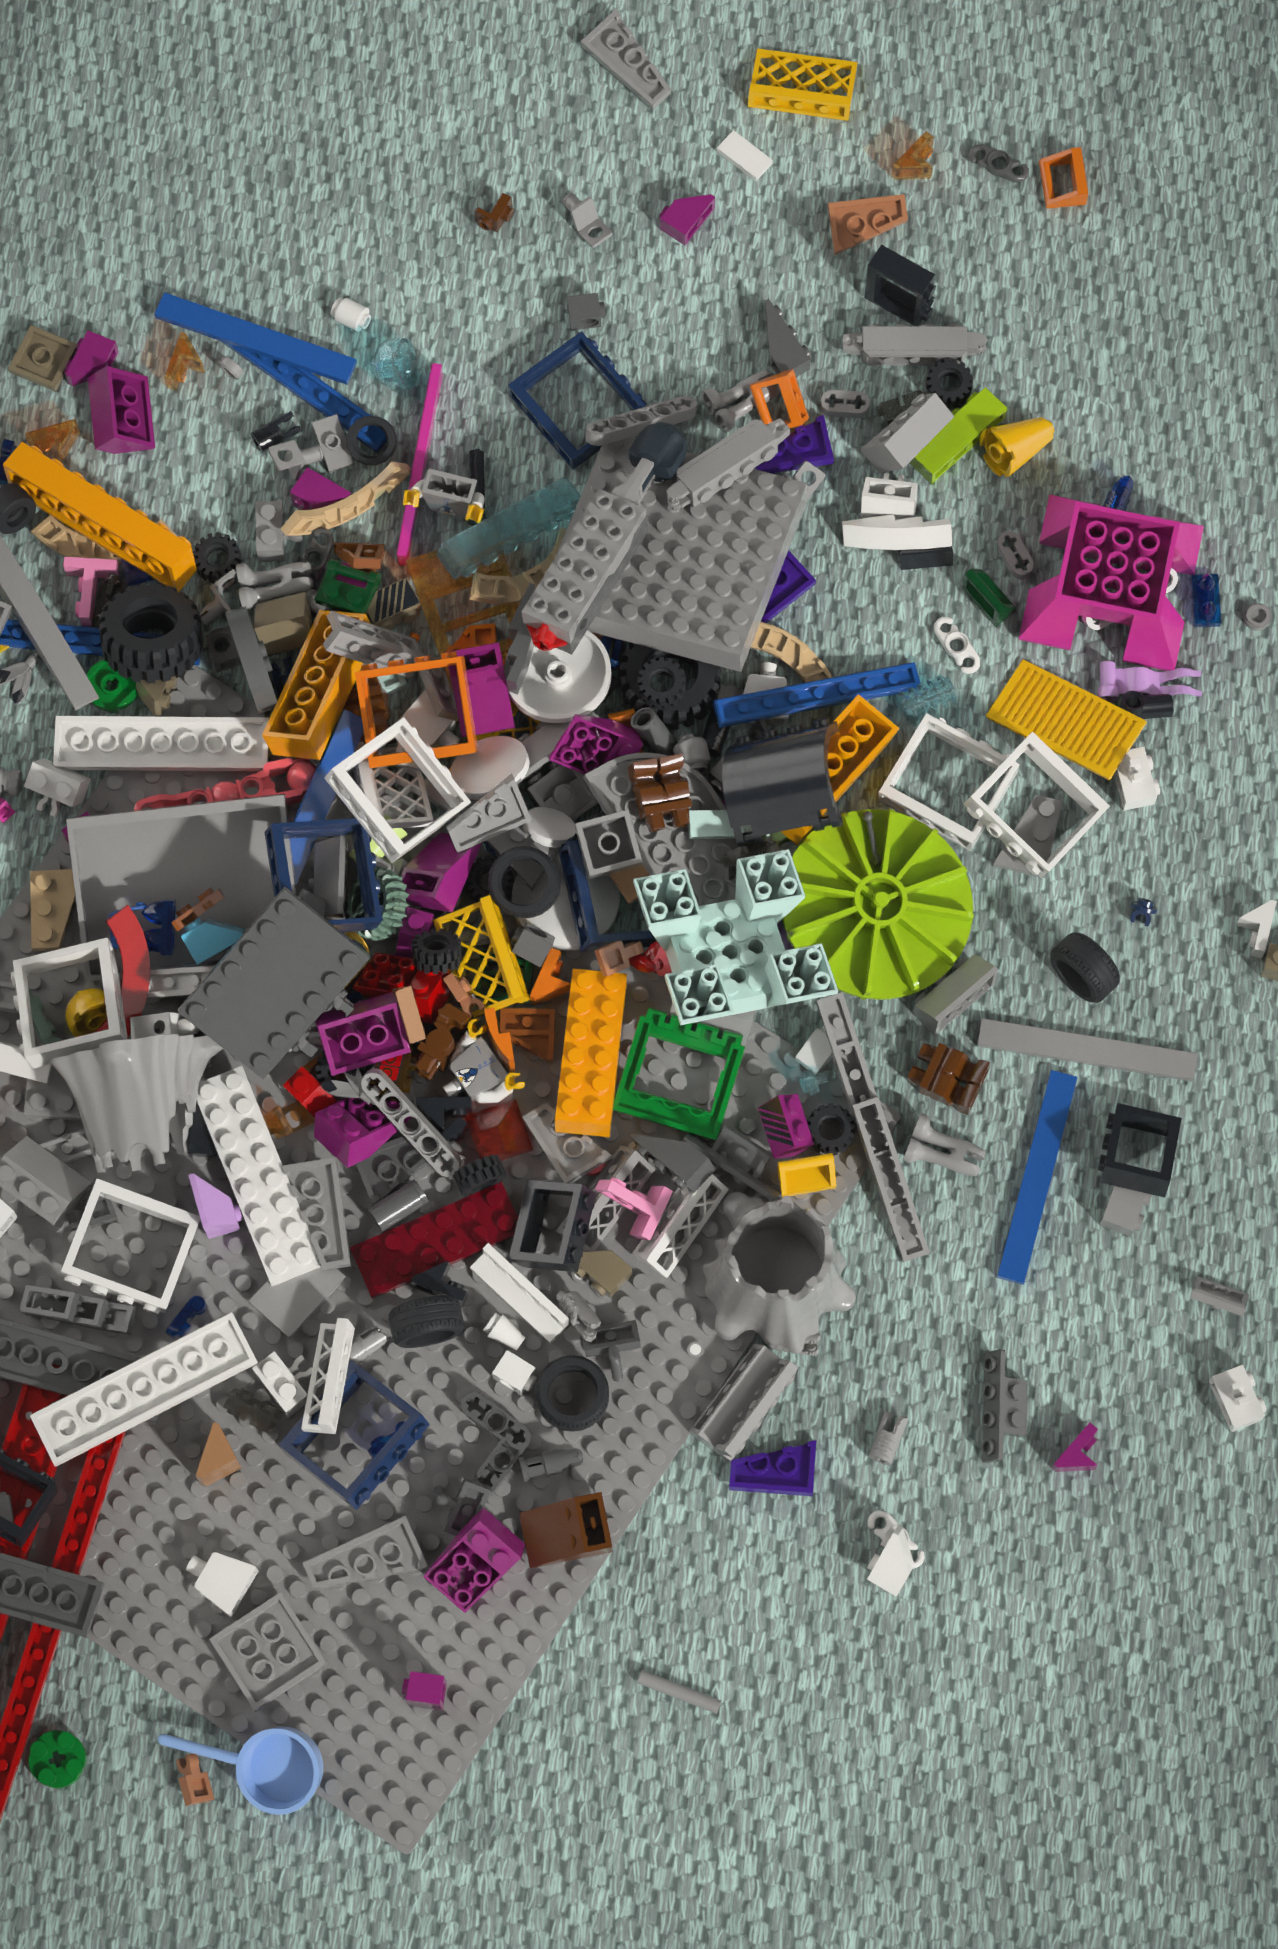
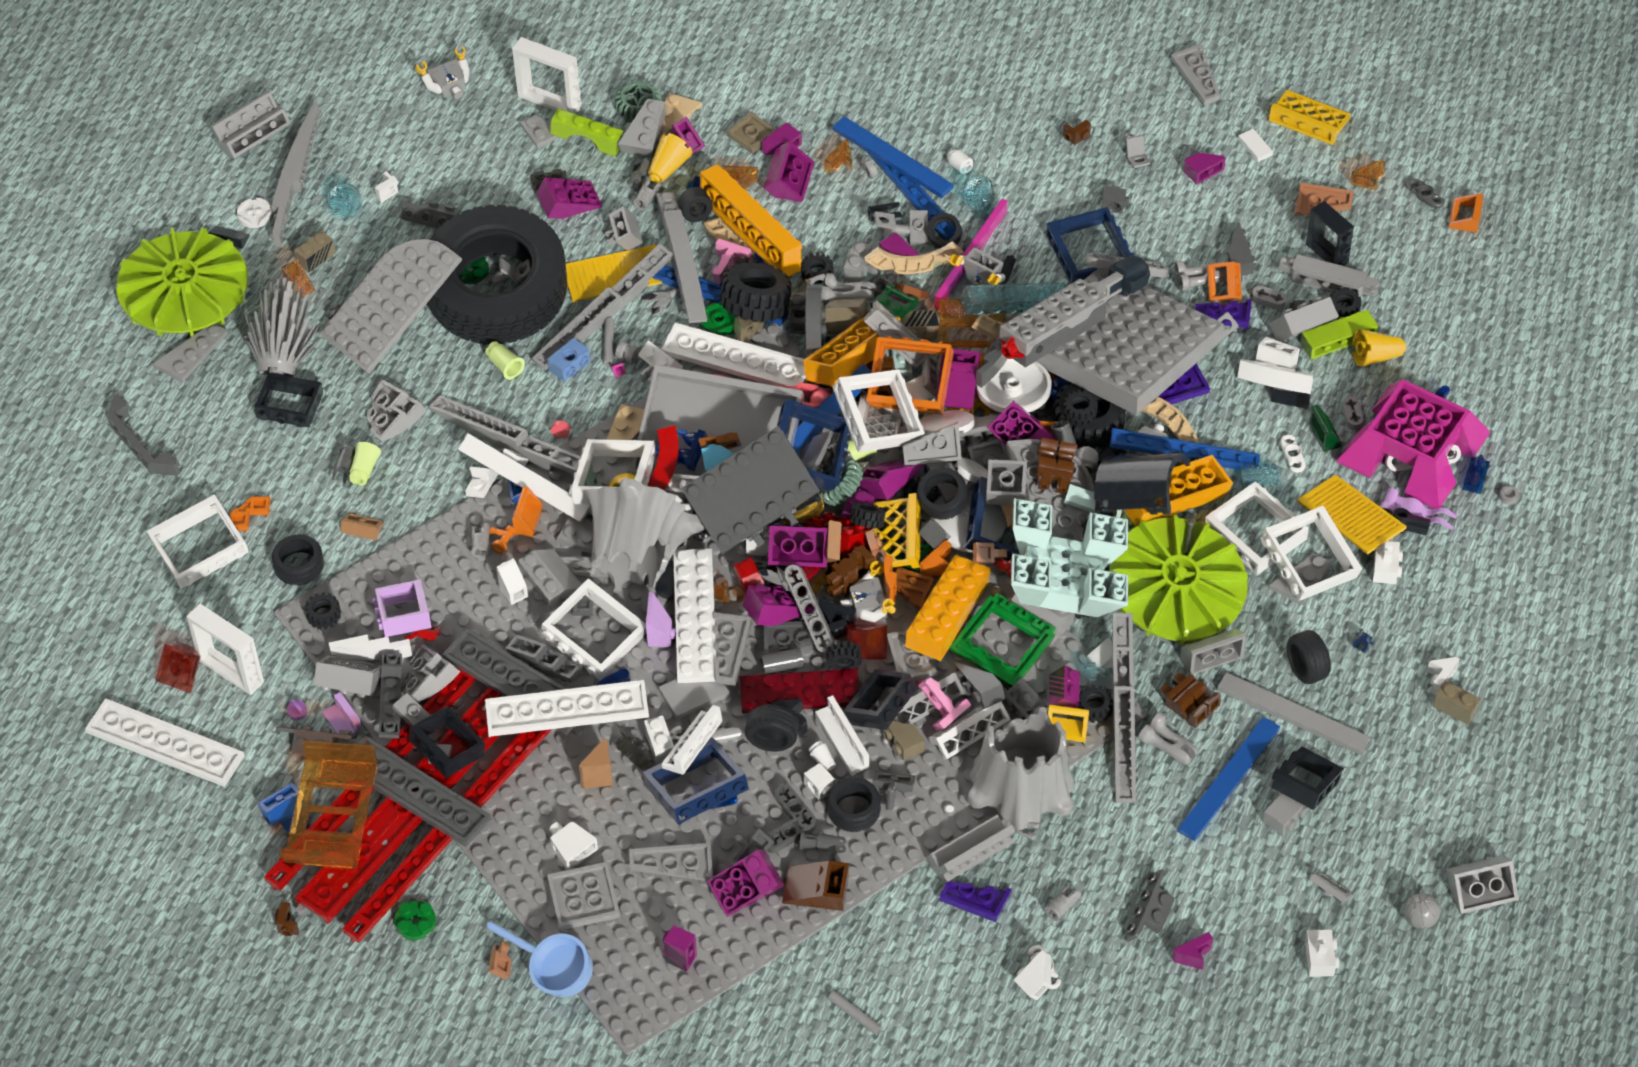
camera: 20 degrees right, 20 degrees down
(580, 1315) = (877, 759): light grey hinge -> none
(726, 462) = (1172, 295): light grey hinge -> none

